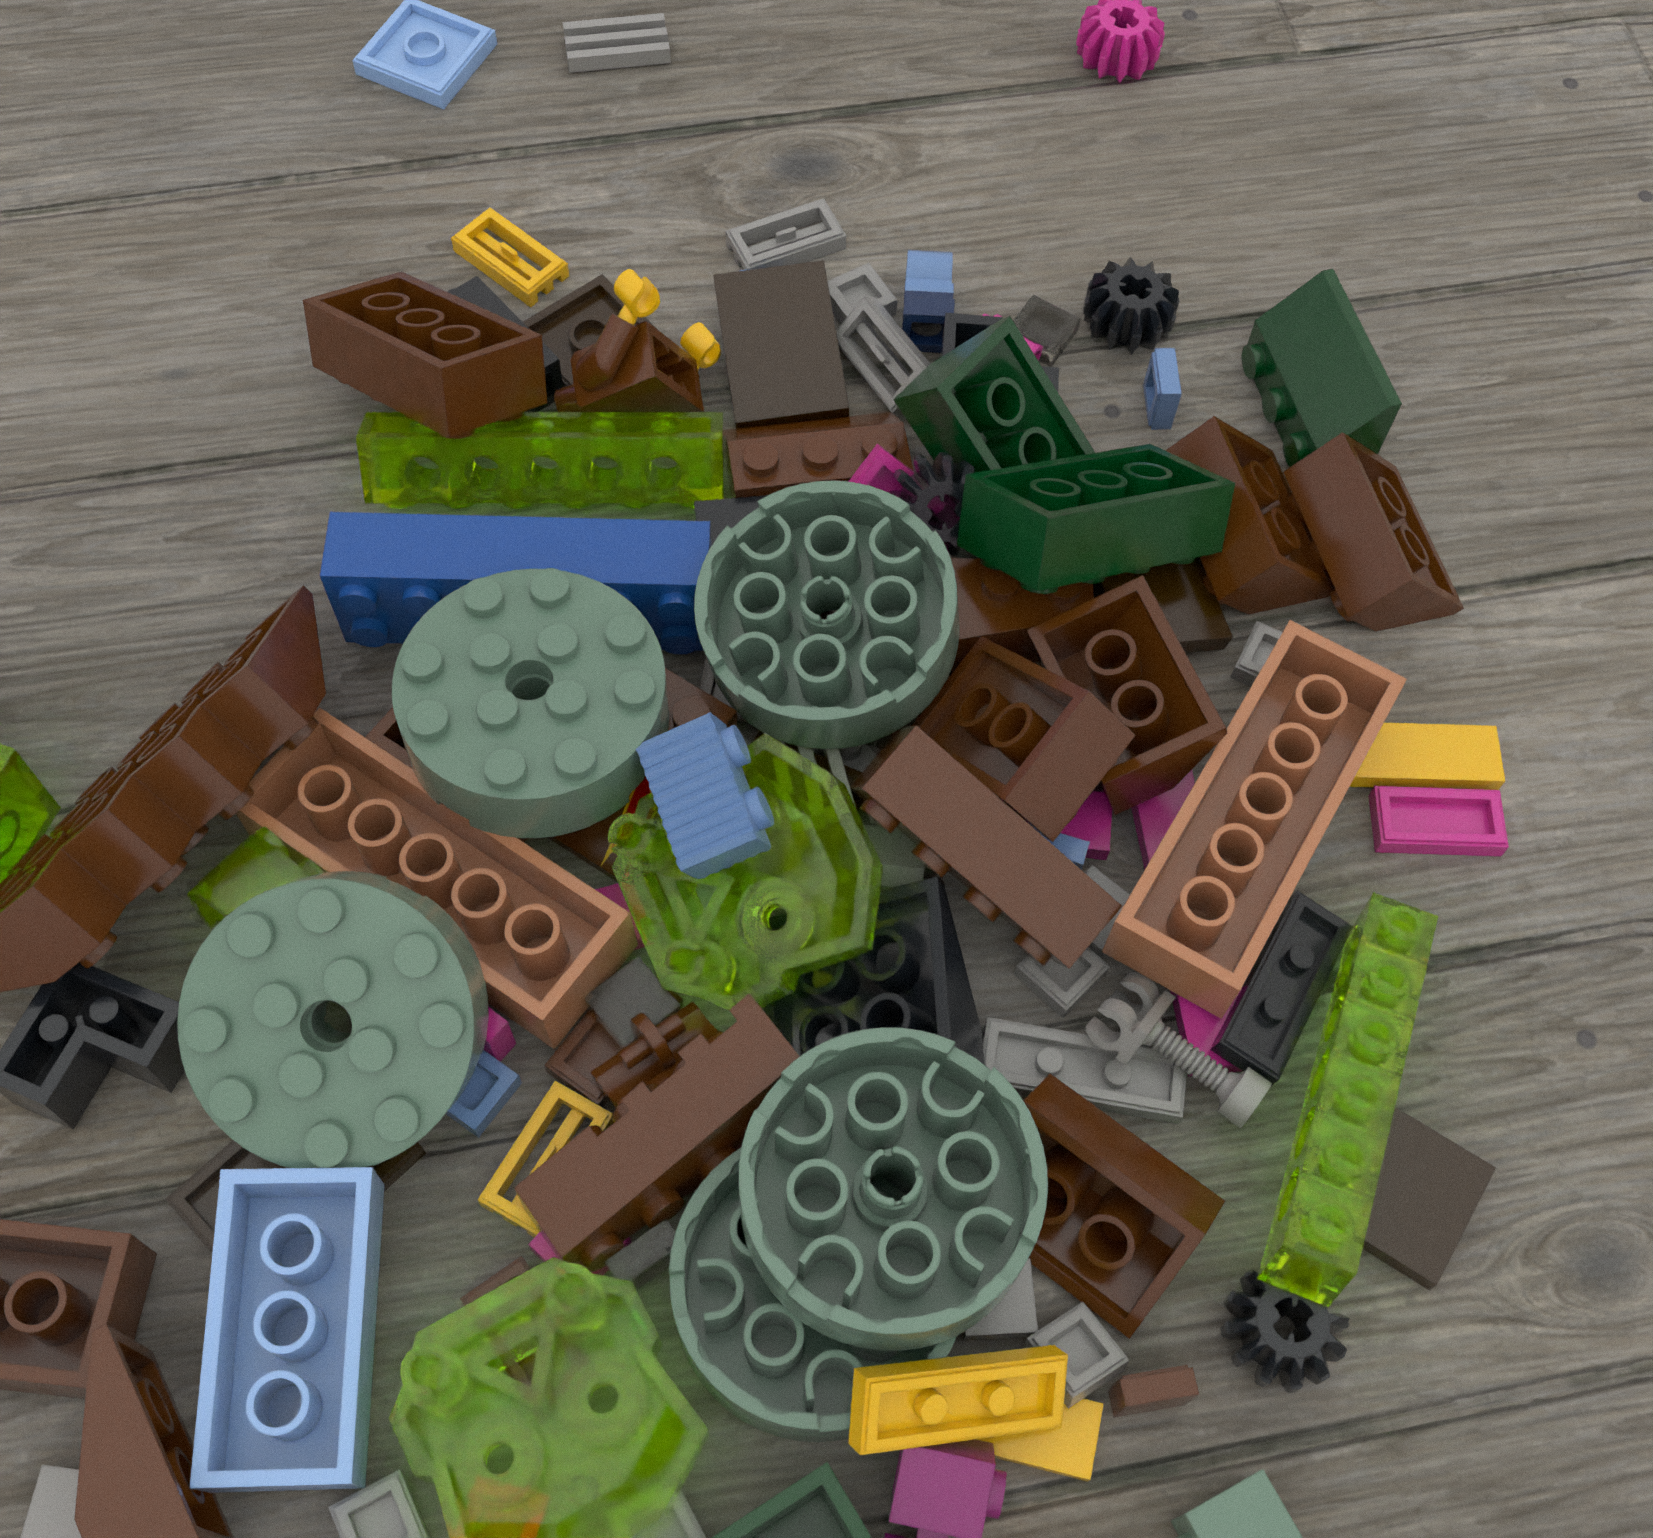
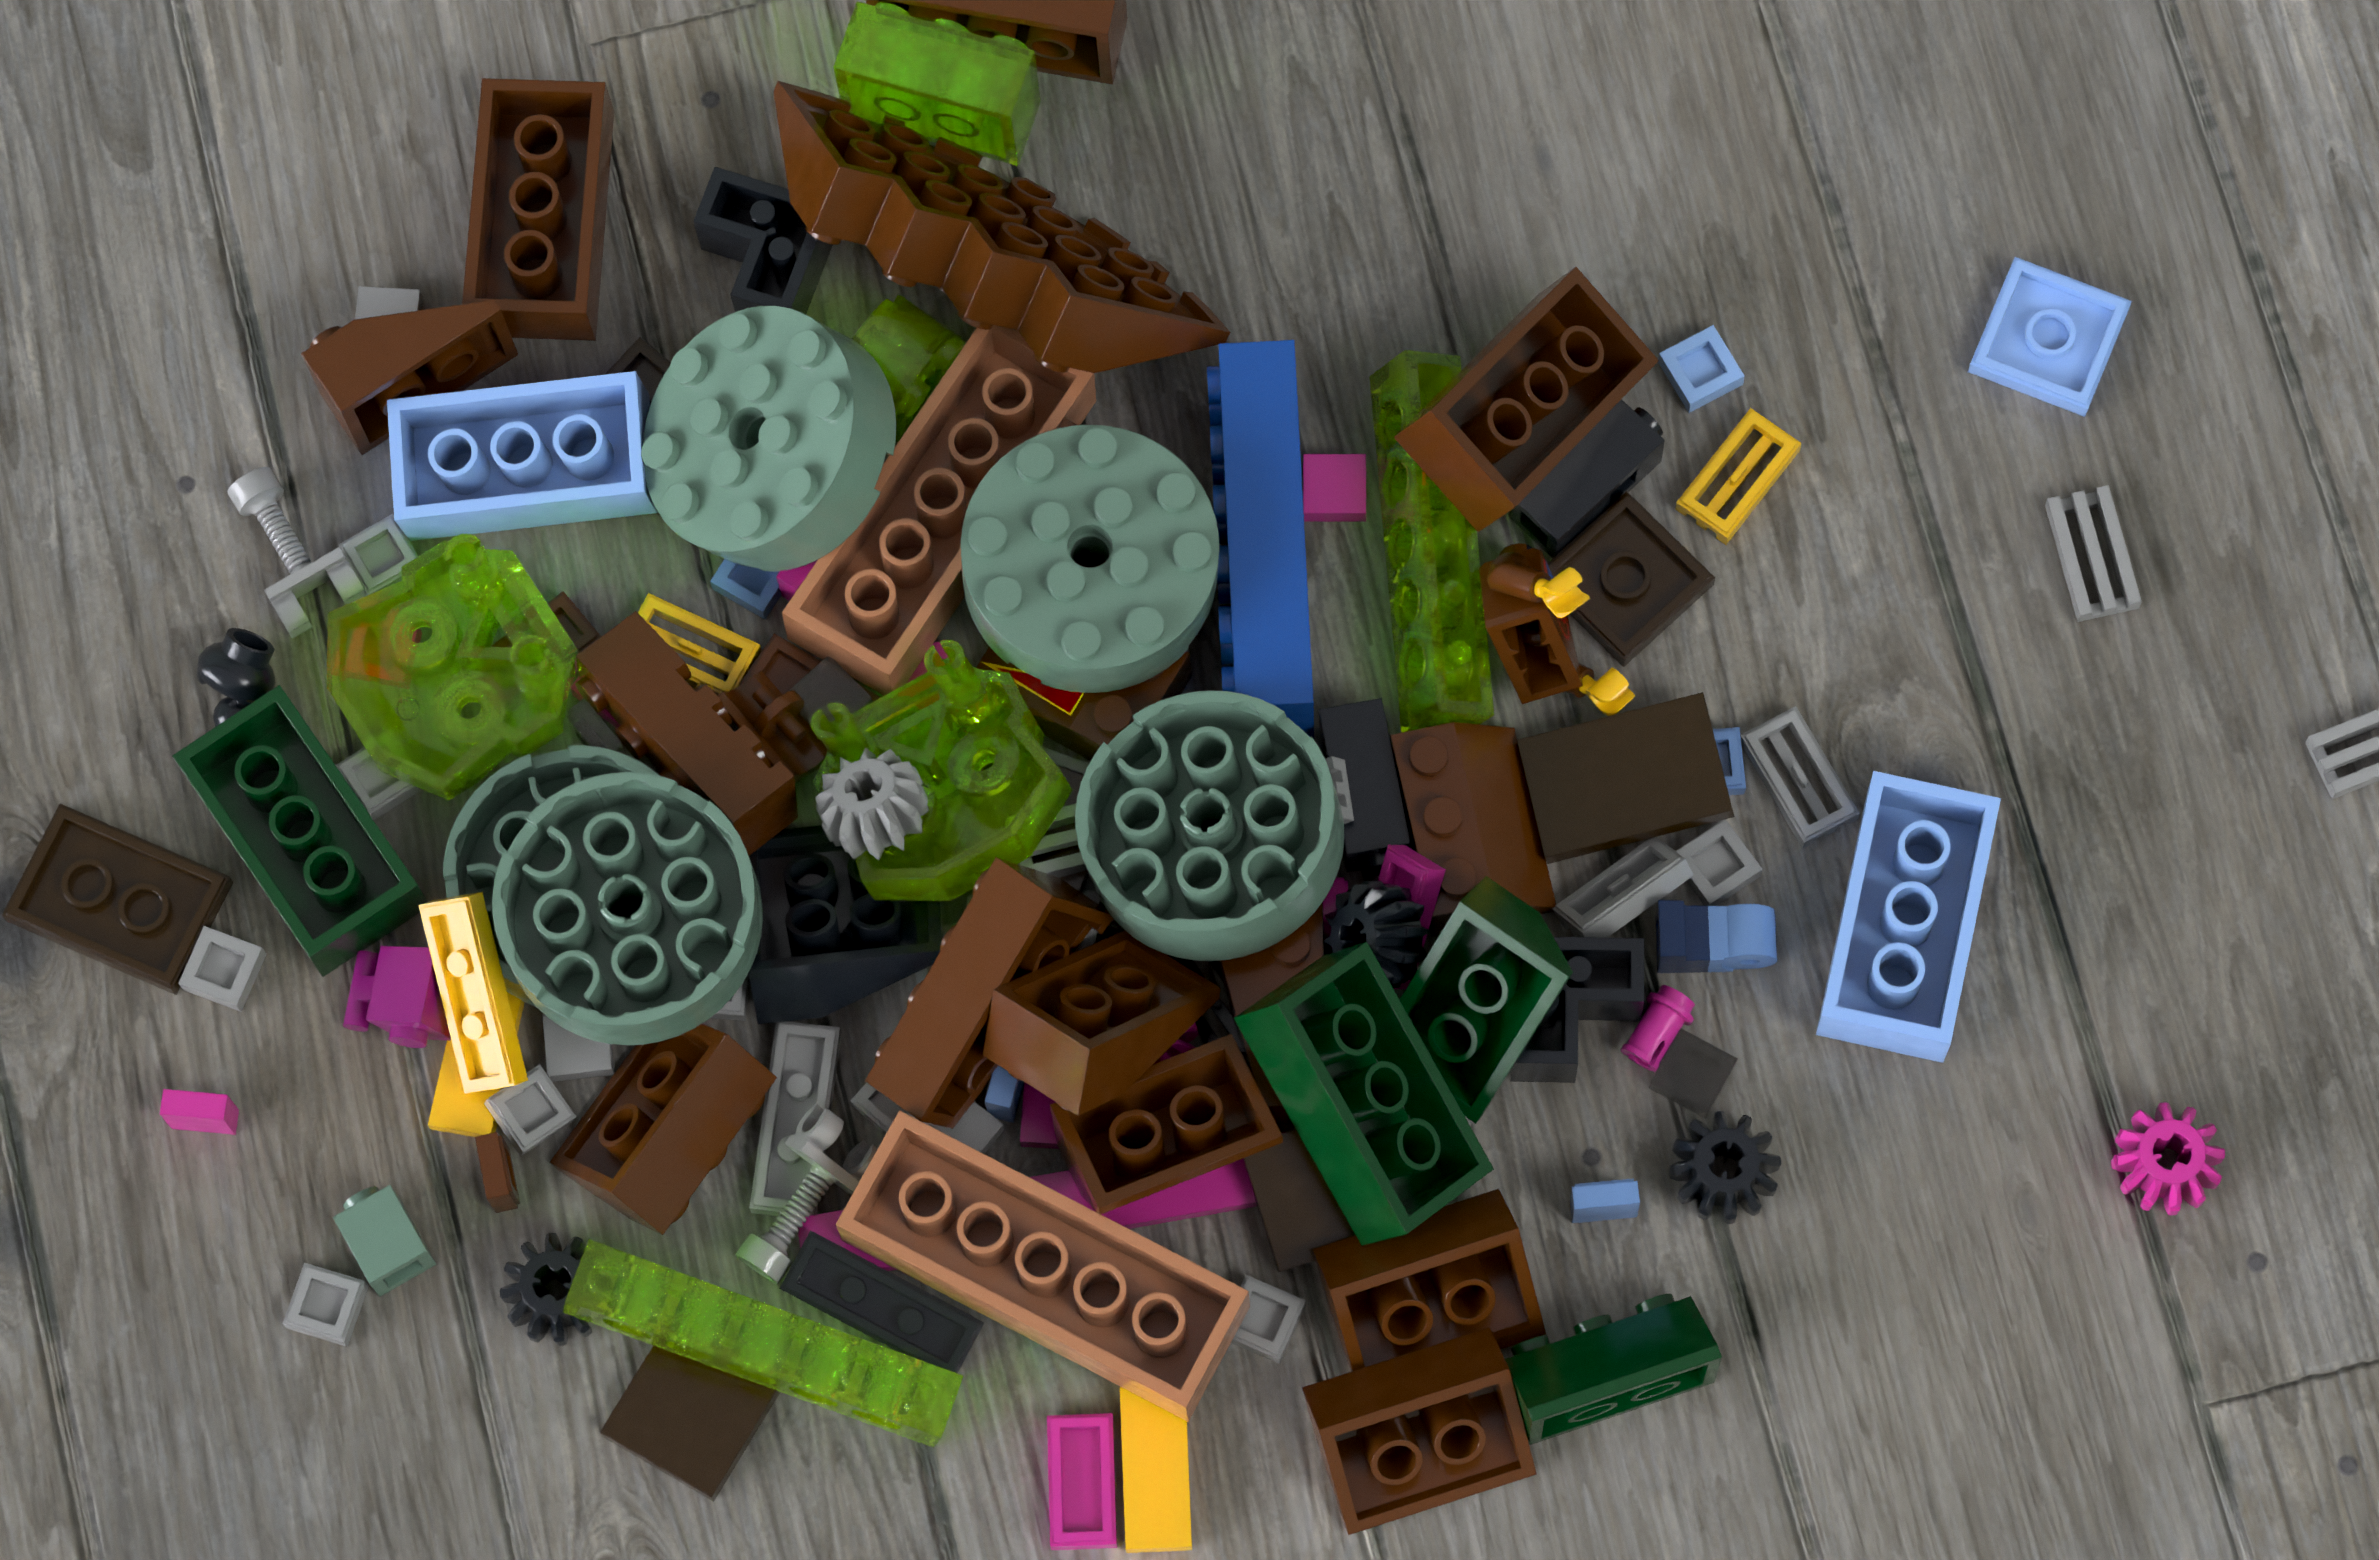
camera: 95 degrees right, 10 degrees up
(409, 258) = (1701, 368): none -> light blue tile
(705, 795) = (989, 720): medium blue brick -> none
(768, 906) = (872, 803): none -> light grey gear
(922, 160) = (1908, 917): none -> light blue brick

